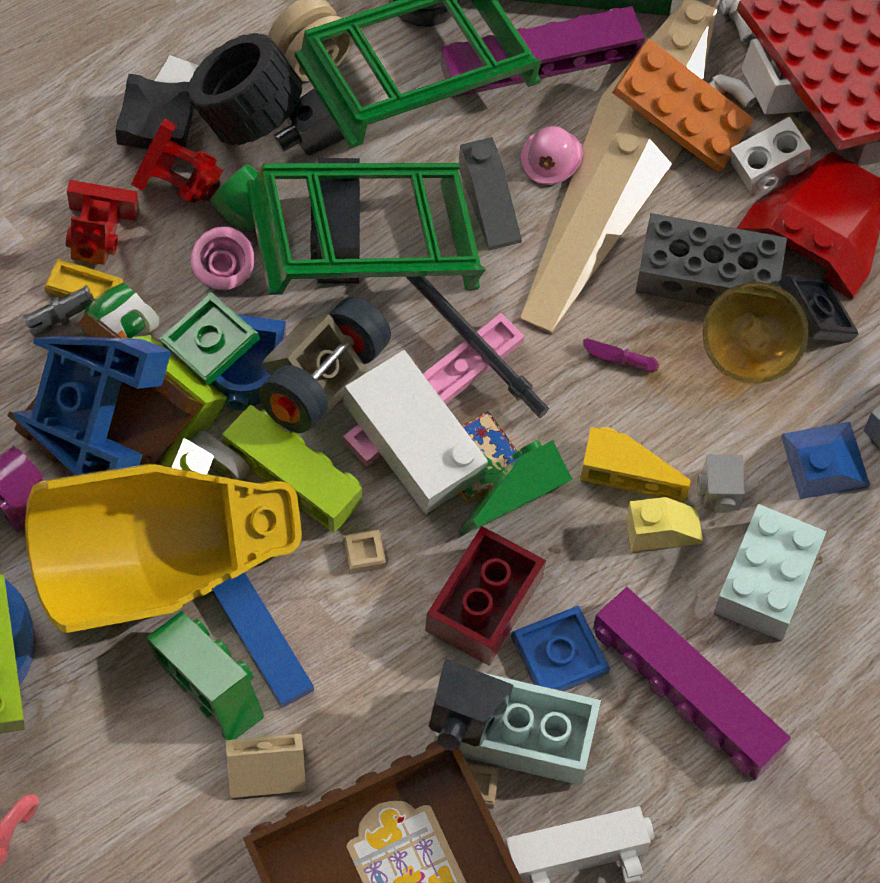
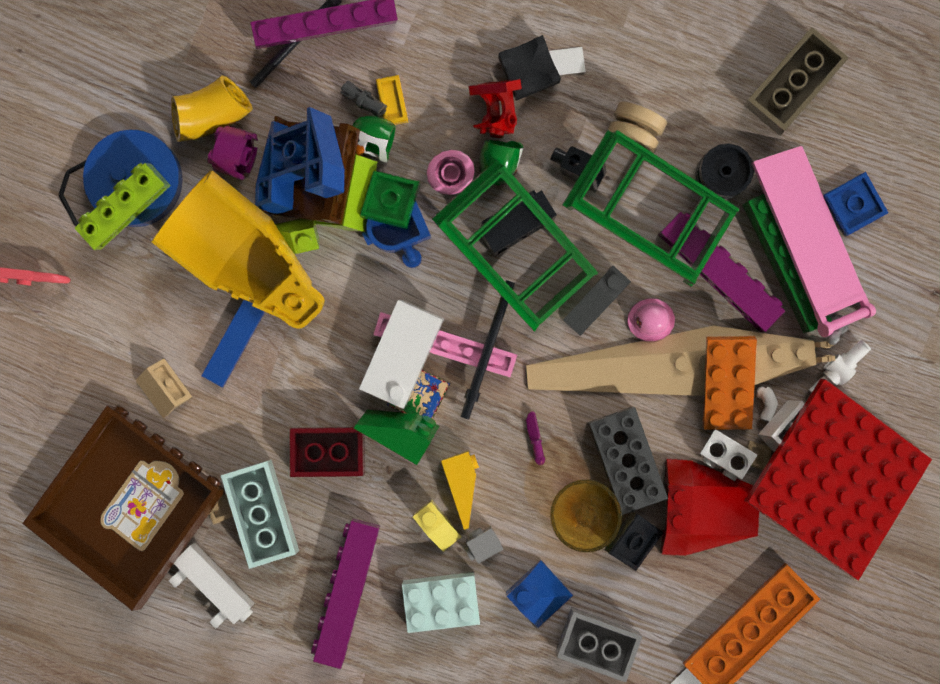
camera: 65 degrees right, 25 degrees up
(101, 207) = (446, 77): red tile -> none
(207, 673) = (190, 325): green wedge -> none
(225, 461) = (326, 250): light grey beam -> none
(245, 89) = (569, 132): black tyre -> none
(284, 457) = (341, 296): lime brick -> none
(318, 362) = (408, 274): brick -> none
(364, 552) = (321, 365): tan tile -> none
(467, 705) = (236, 486): black torso -> none
(560, 651) = (325, 509): blue tile -> none

